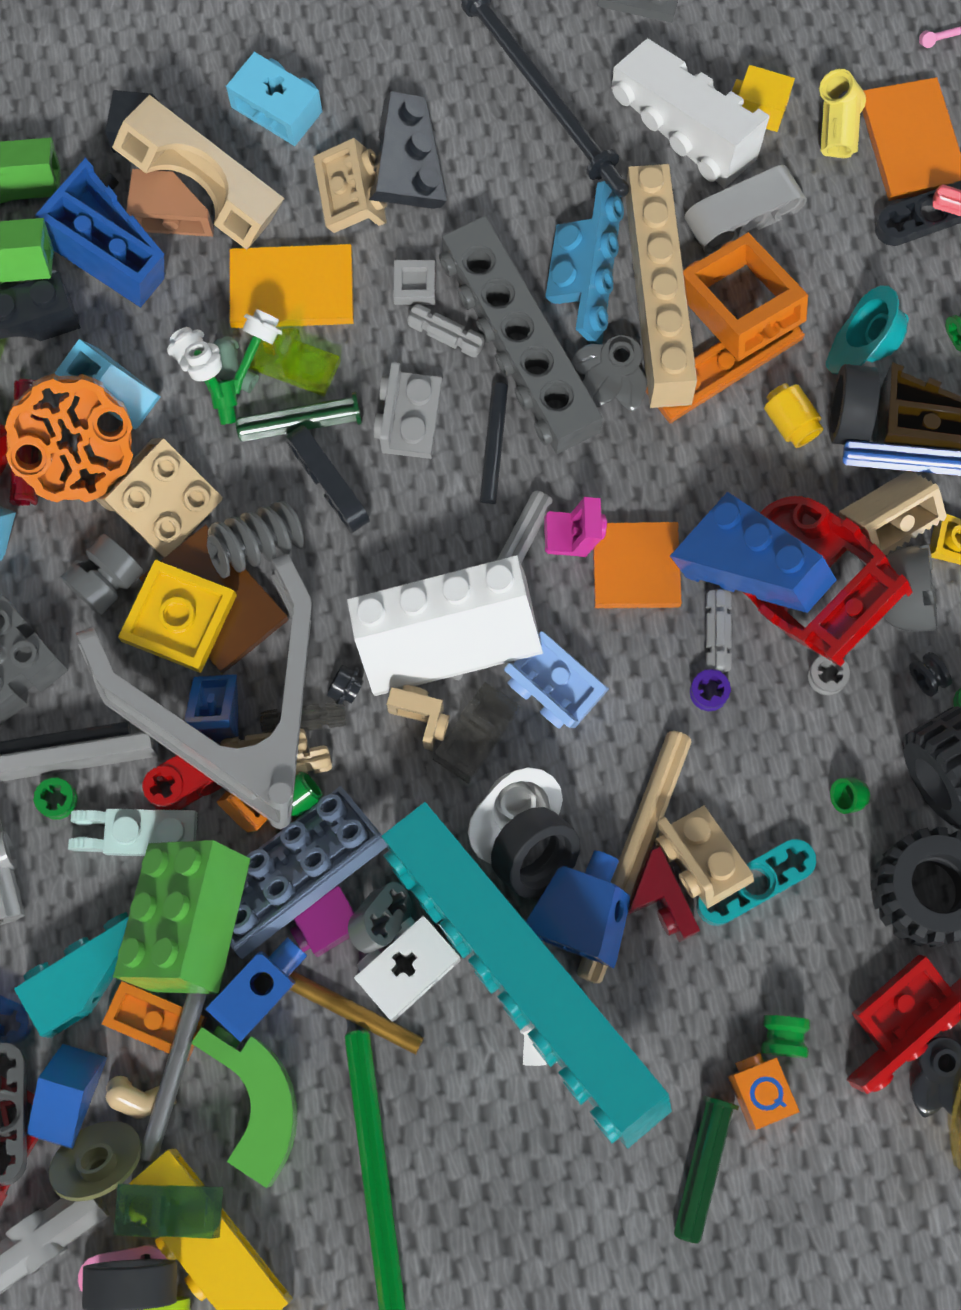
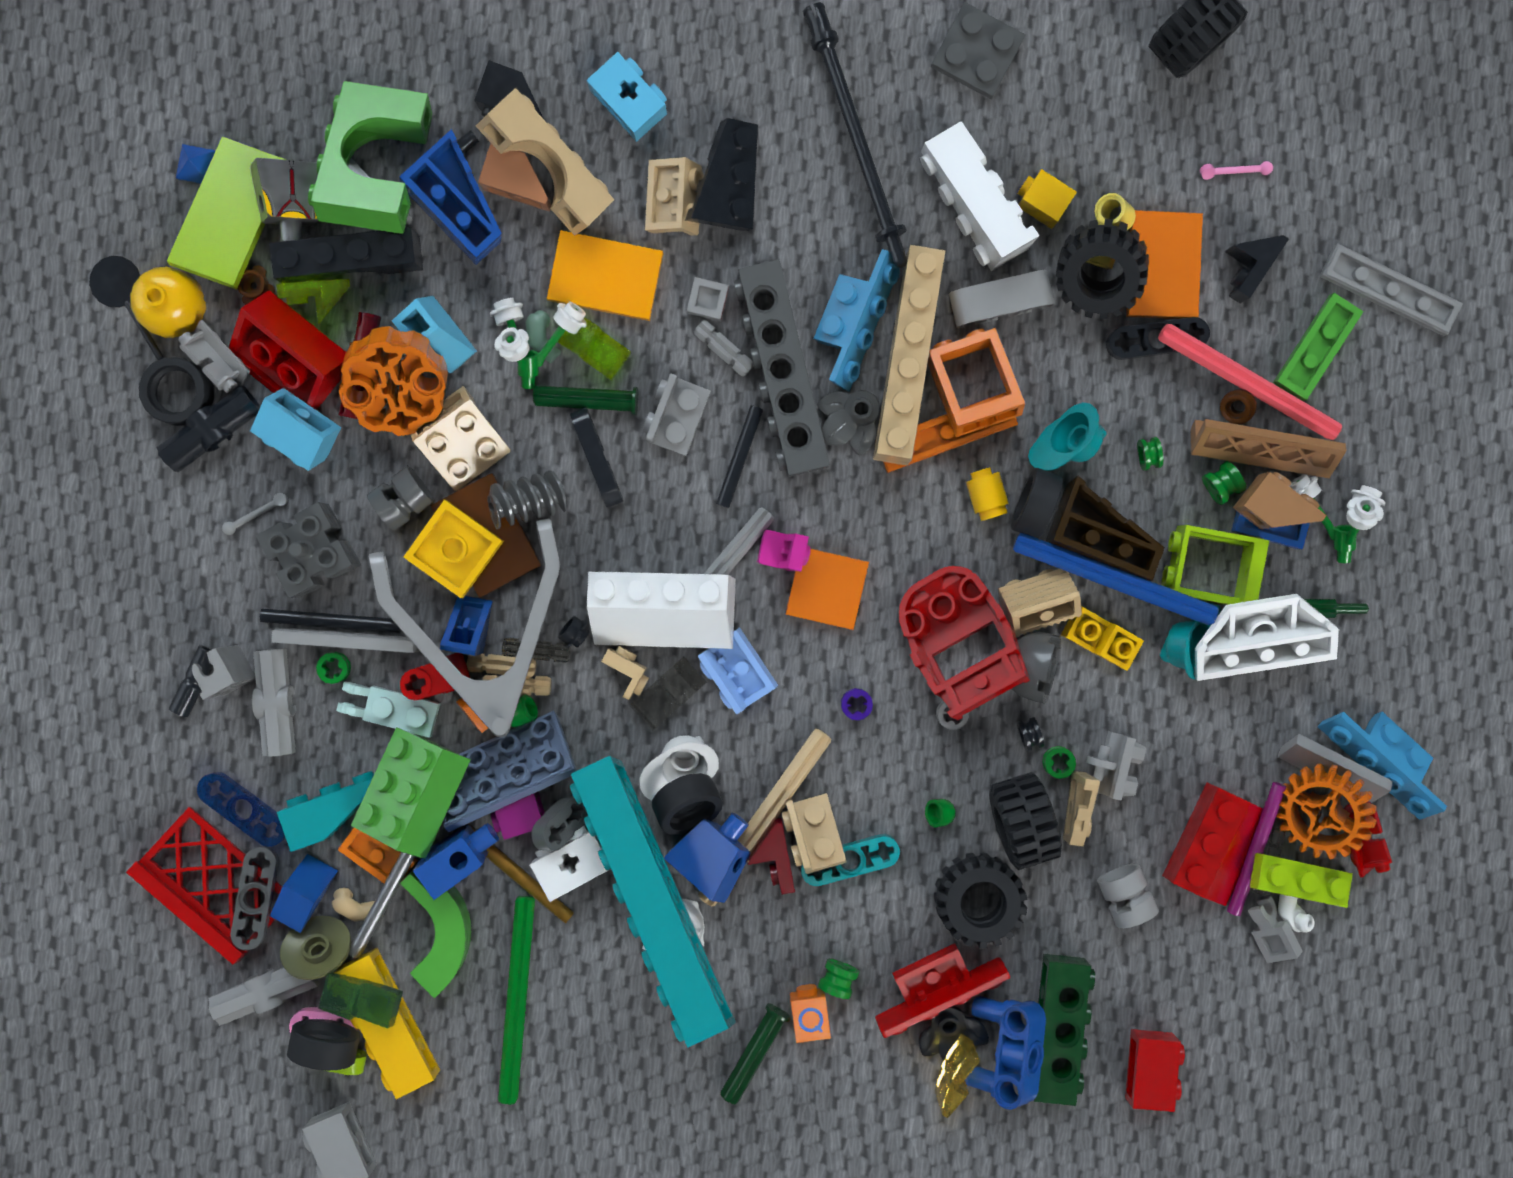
camera: 15 degrees right, 15 degrees up
(719, 630) = (876, 658): light grey axle -> none
(753, 555) = (916, 613): blue wedge -> none
(878, 164) = (1096, 295): none -> black tyre

